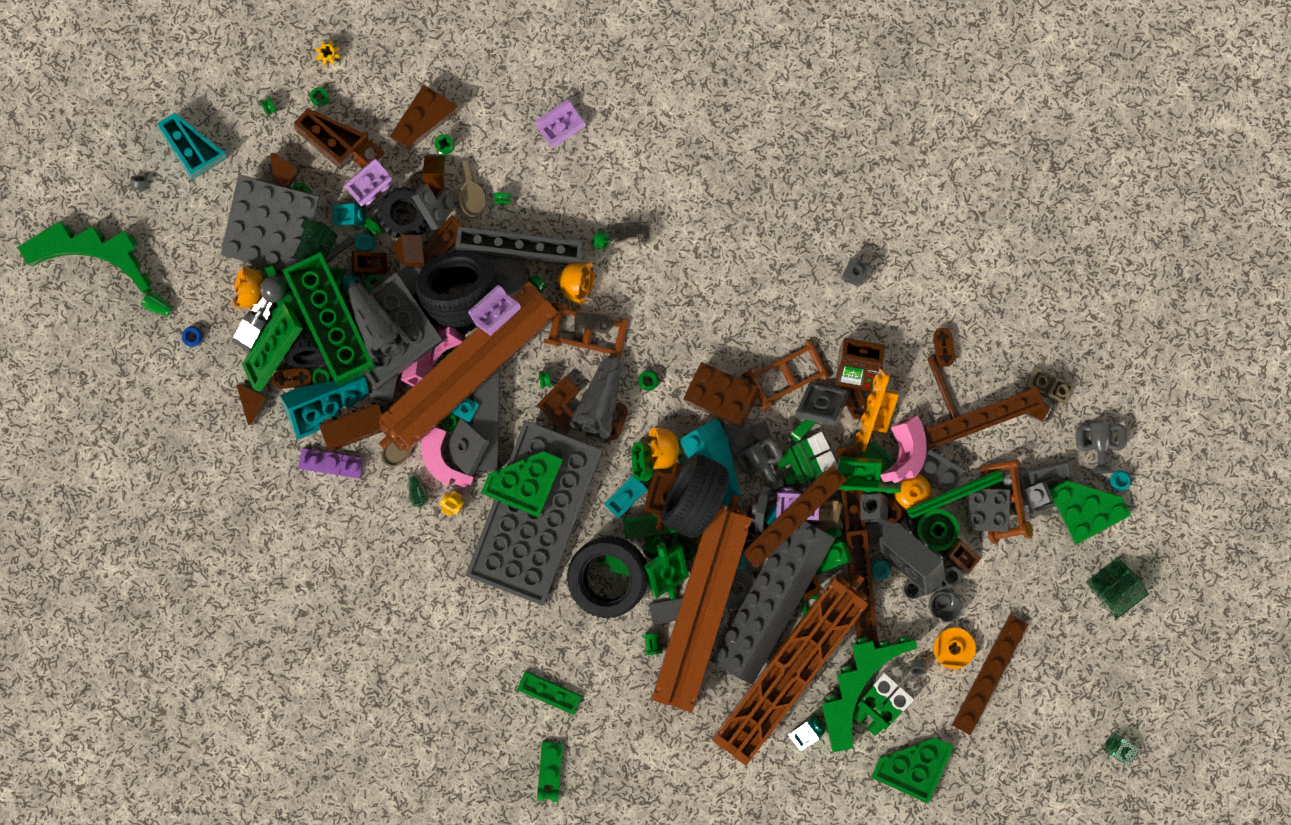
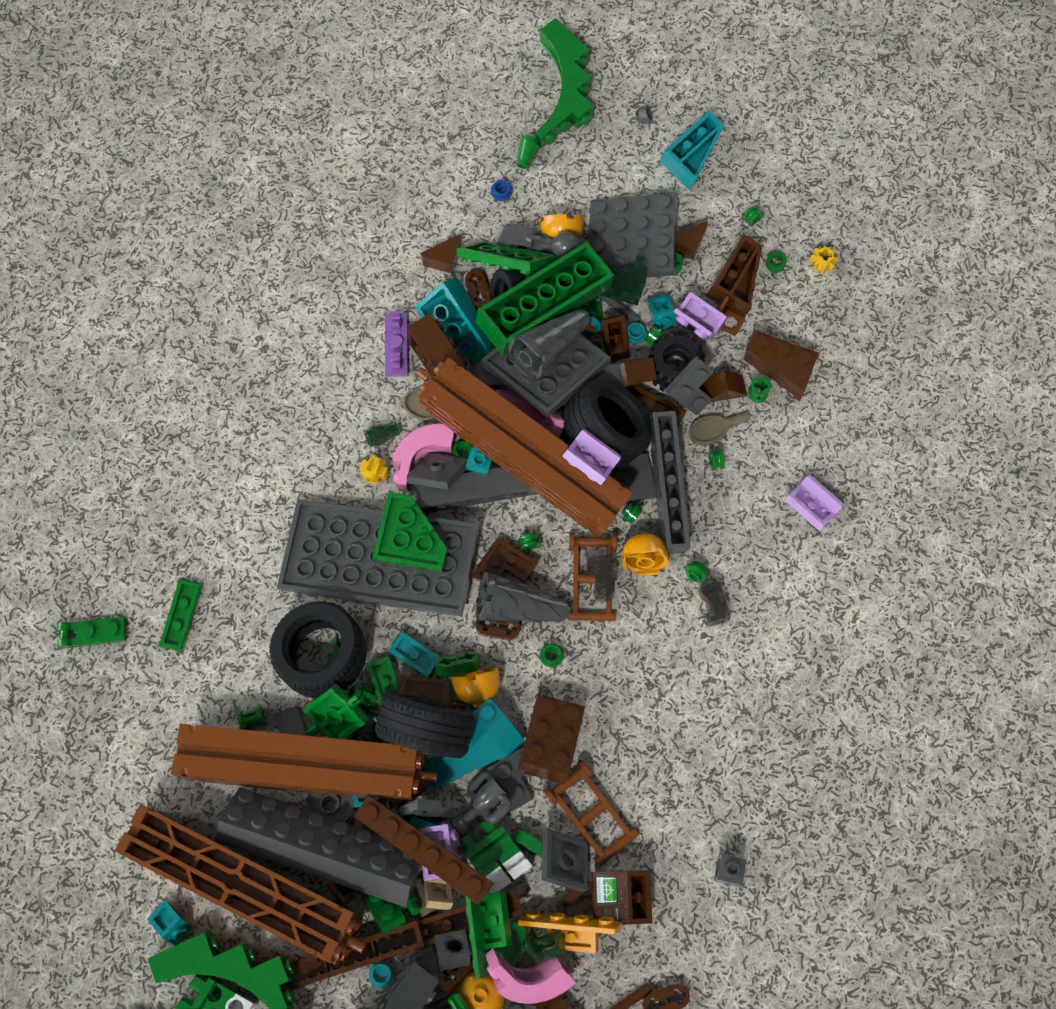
camera: 75 degrees right, 15 degrees down
(886, 434) = (544, 947): none -> clear green bracket

